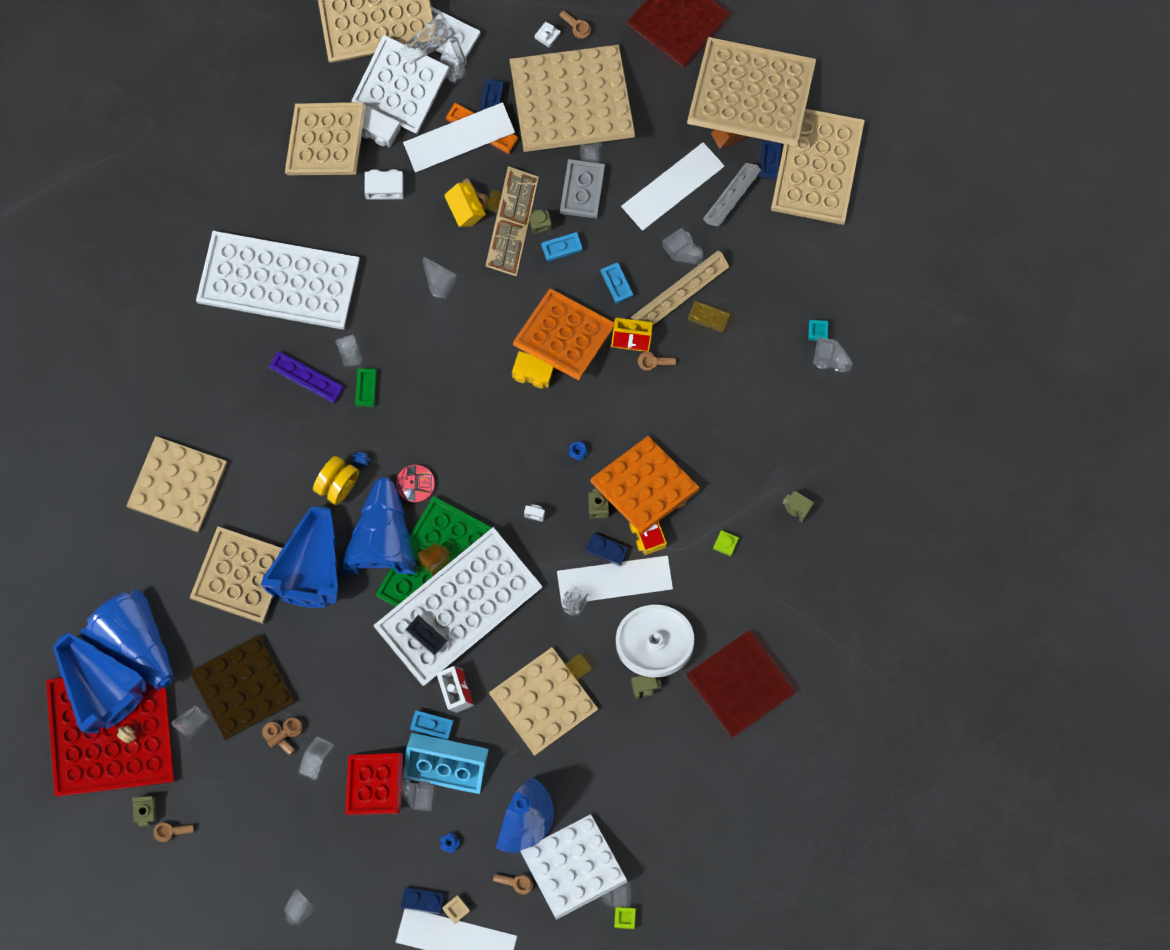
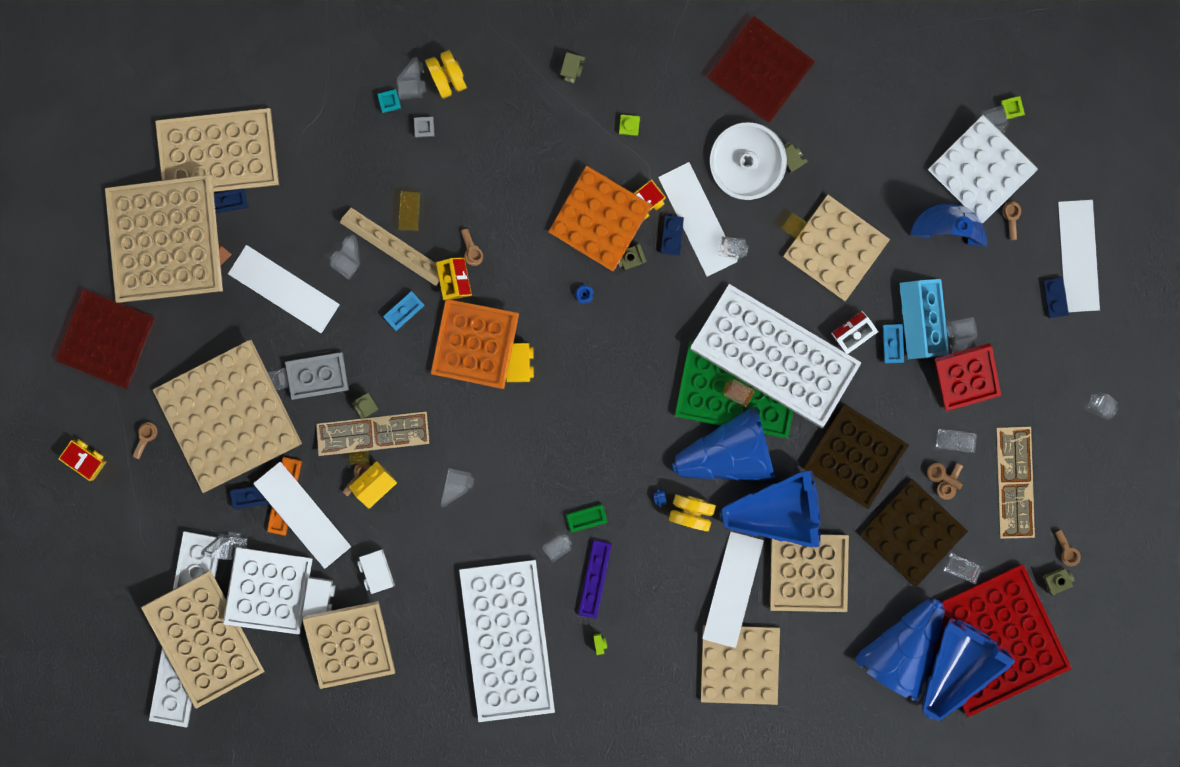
camera: 110 degrees left, 15 degrees up
(126, 734) = (996, 622): tan plate -> none
(244, 361) = (600, 643): none -> lime plate
(249, 498) = (733, 589): none -> white sticker
(255, 803) = (1015, 482): none -> sticker
(335, 654) = (856, 456): none -> dark brown plate
(415, 483) = (666, 438): coral dish -> none
(426, 635) = (816, 375): black plate -> none
(428, 39) = (217, 577): clear slope -> none
(454, 842) = (990, 291): blue plate -> none
(456, 909) = (1054, 264): tan plate -> none
(534, 512) = (659, 315): white plate -> none
(547, 34) = (163, 464): white tile -> none
(561, 247) = (384, 376): dark azure plate -> none
(732, 194) = (276, 227): light grey plate -> none
(783, 354) = (424, 127): none -> light grey plate
(826, 385) = (446, 74): none -> yellow wheel

